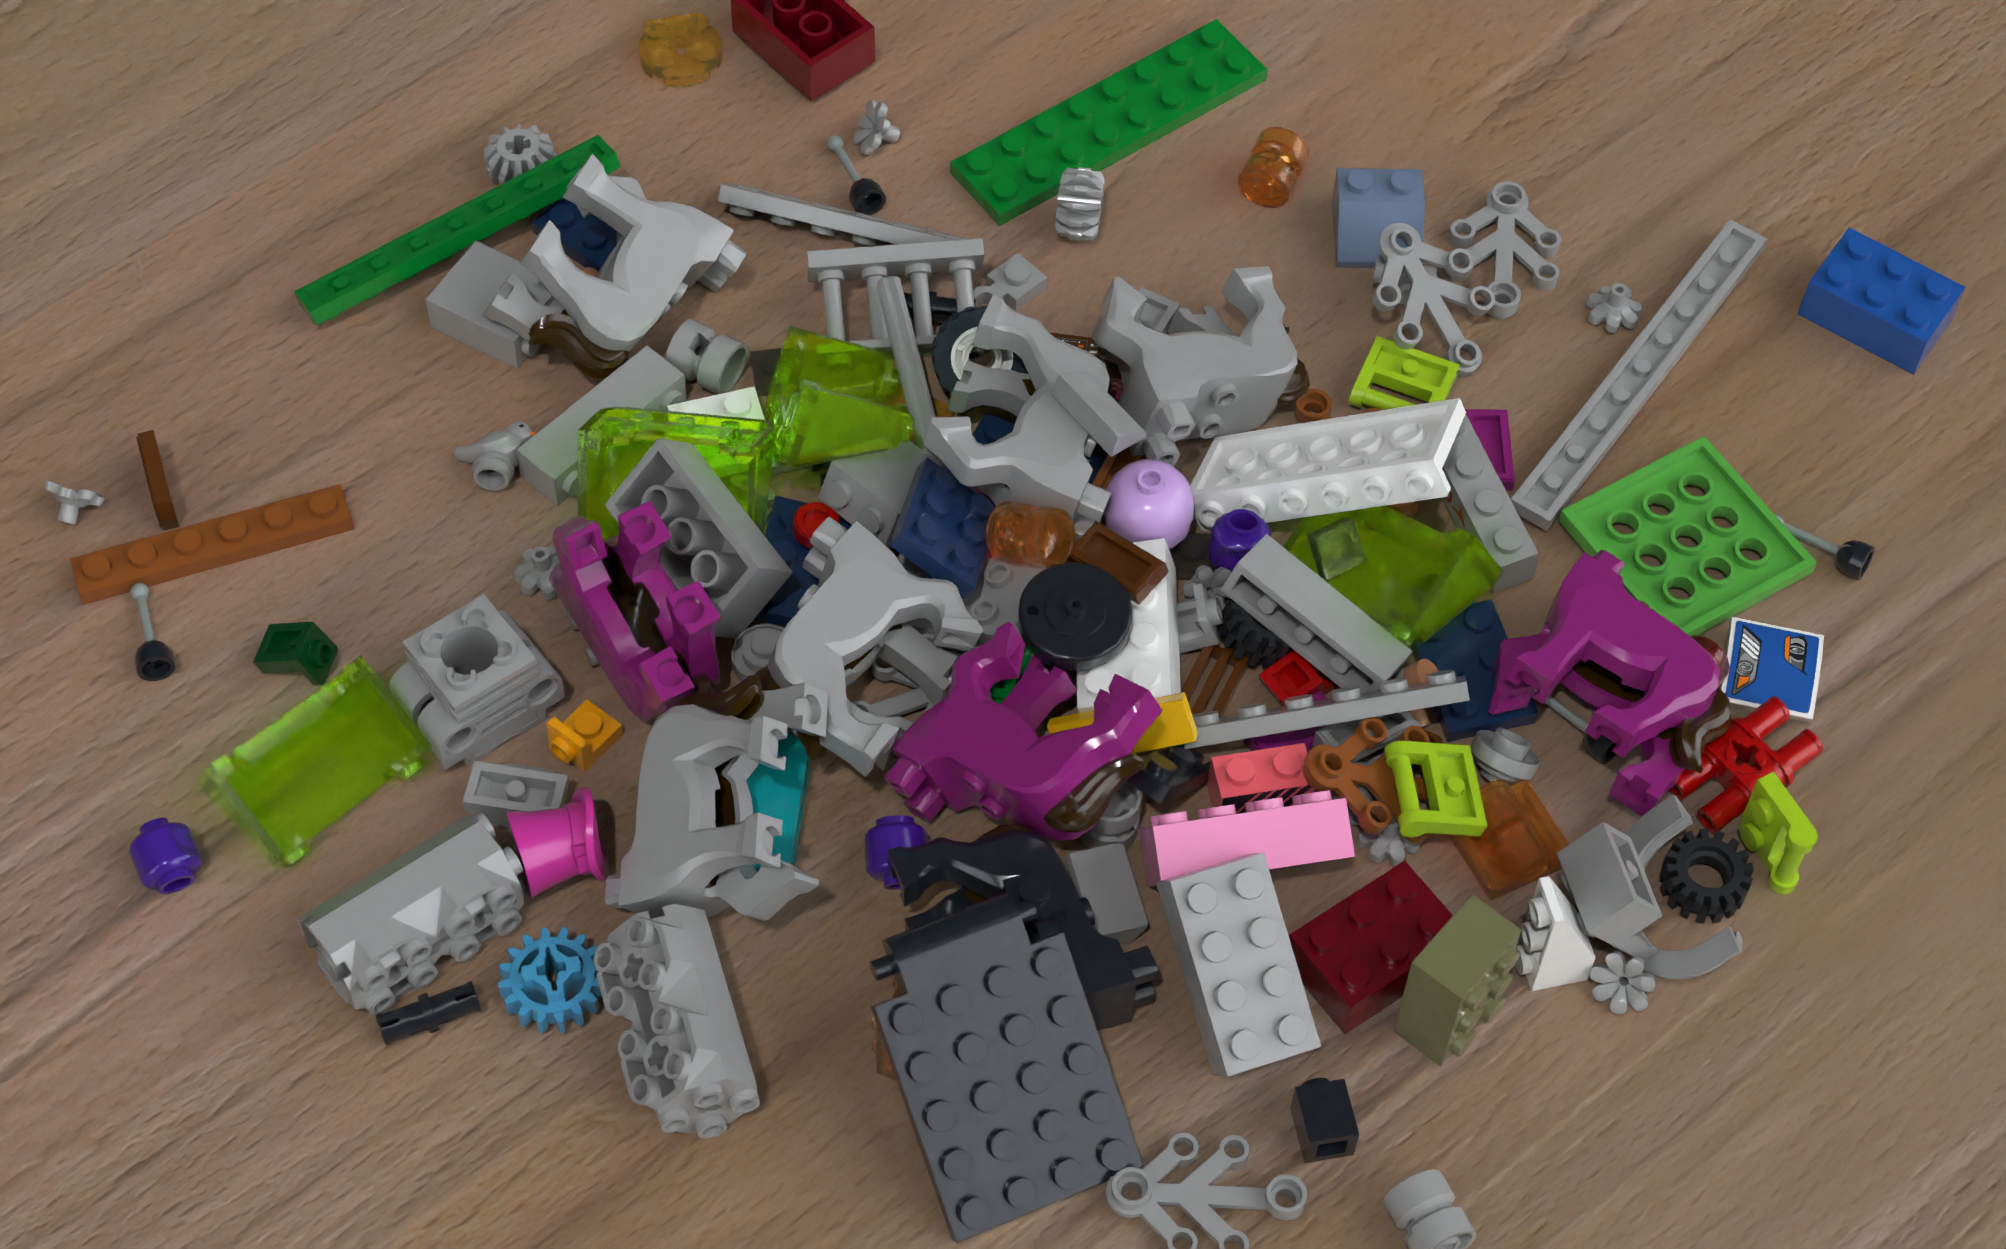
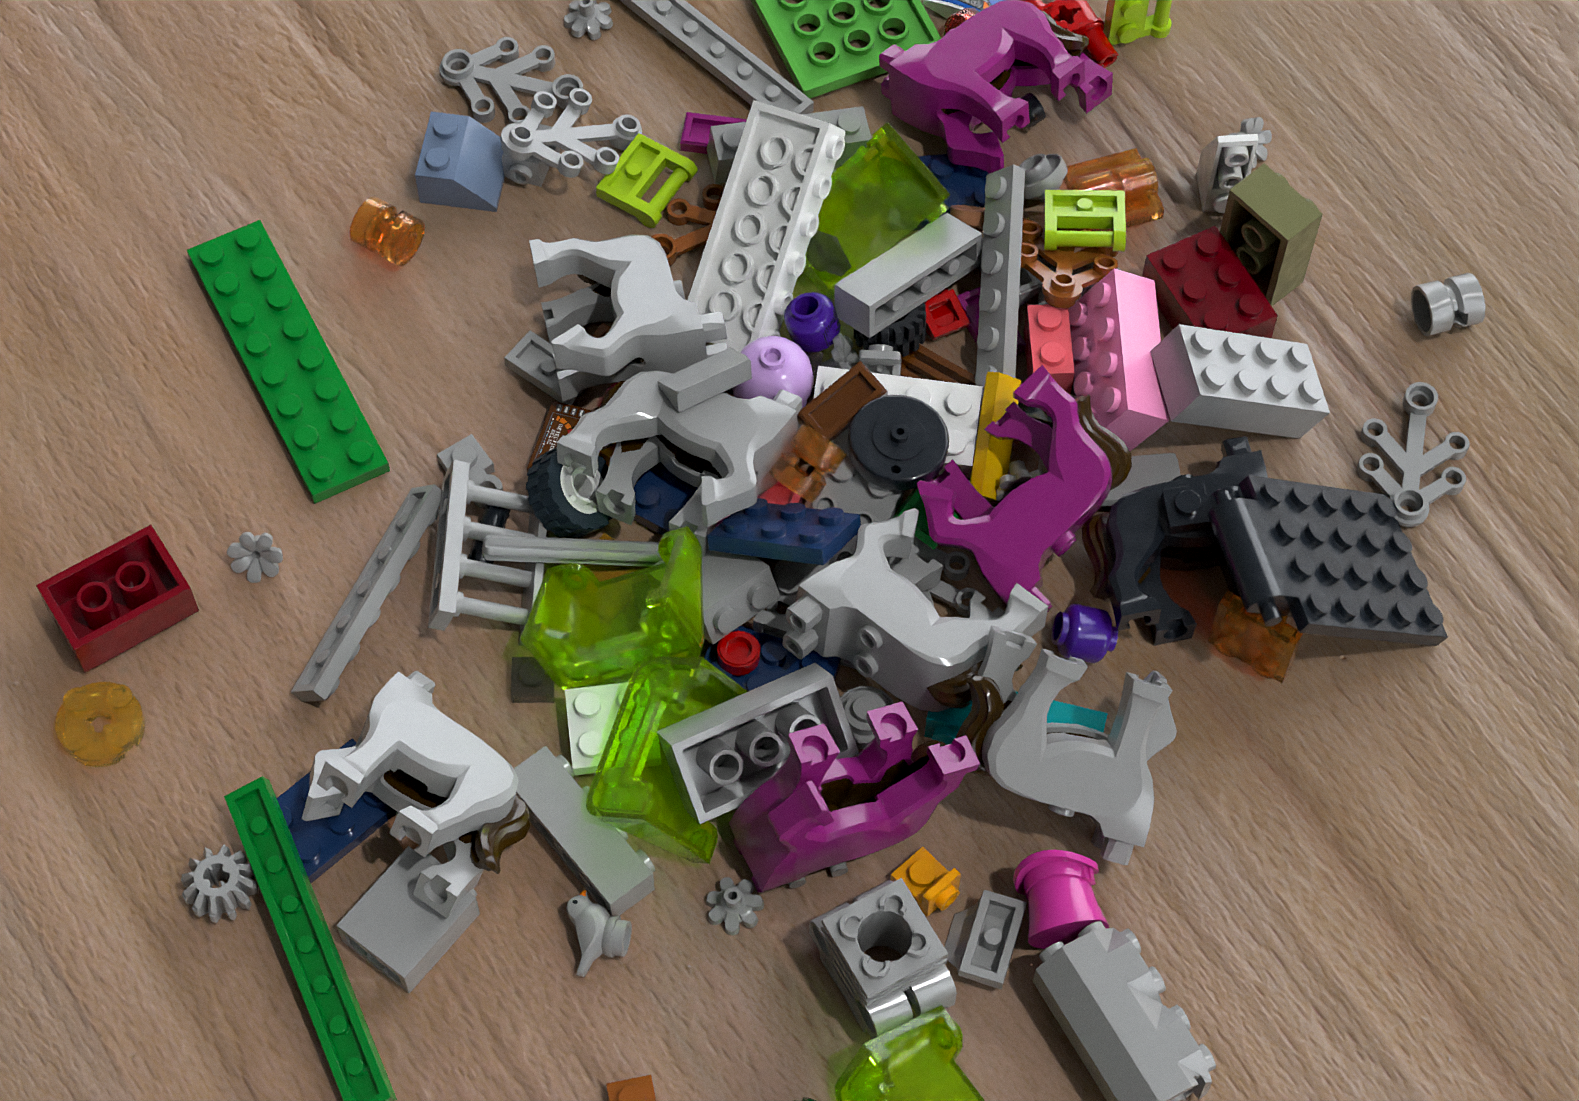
camera: 80 degrees left, 5 degrees up
(428, 1013) = (1209, 1030): black pin -> none
(527, 977) = (1173, 936): dark azure gear -> none
(684, 1032) = (1251, 812): light grey brick -> none
(711, 359) = (522, 724): light grey wheel -> none
(865, 193) = (333, 574): black hinge -> none
(1080, 203) = (401, 388): light grey gear -> none
(1324, 1120) = (1357, 361): black brick -> none
(1617, 902) = (1198, 113): light grey piece -> none
(1700, 899) = (1154, 87): black tyre -> none

